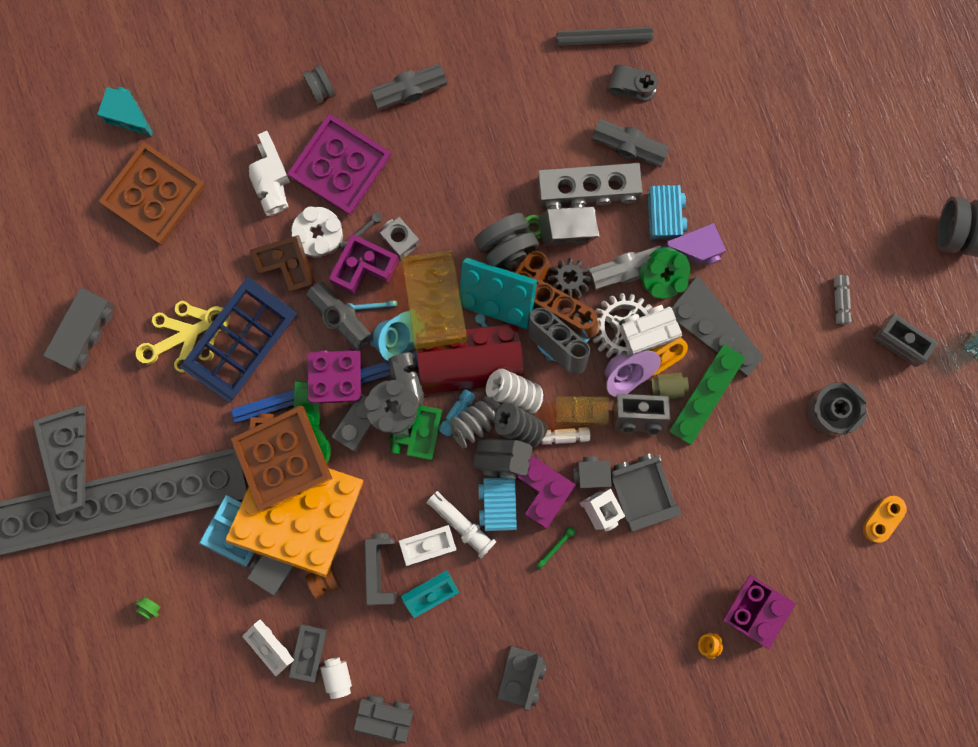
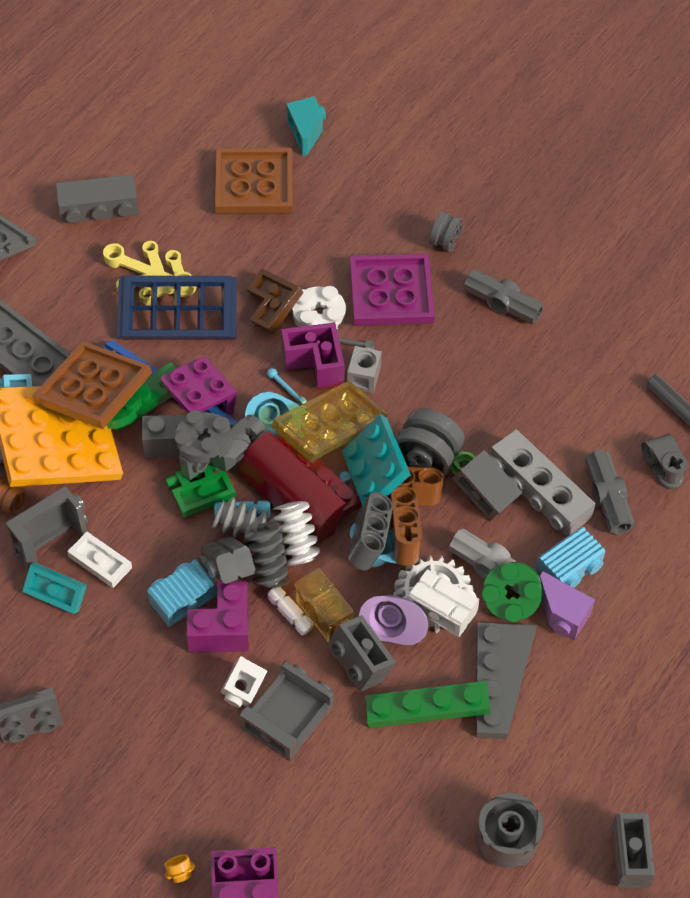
camera: 55 degrees right, 25 degrees down
(269, 177) = (337, 246): white plate -> none
(339, 316) = (256, 363): dark grey piece -> none
(470, 532) = (137, 584): white pin -> none
(564, 272) = (440, 519): dark grey gear -> none
(569, 532) = (201, 673): green hinge -> none
(592, 473) = (270, 651): dark grey brick -> none
(670, 353) = (435, 647): light orange plate -> none
(670, 385) = (410, 667): olive brick -> none
(842, 299) = (625, 772): light grey axle -> none

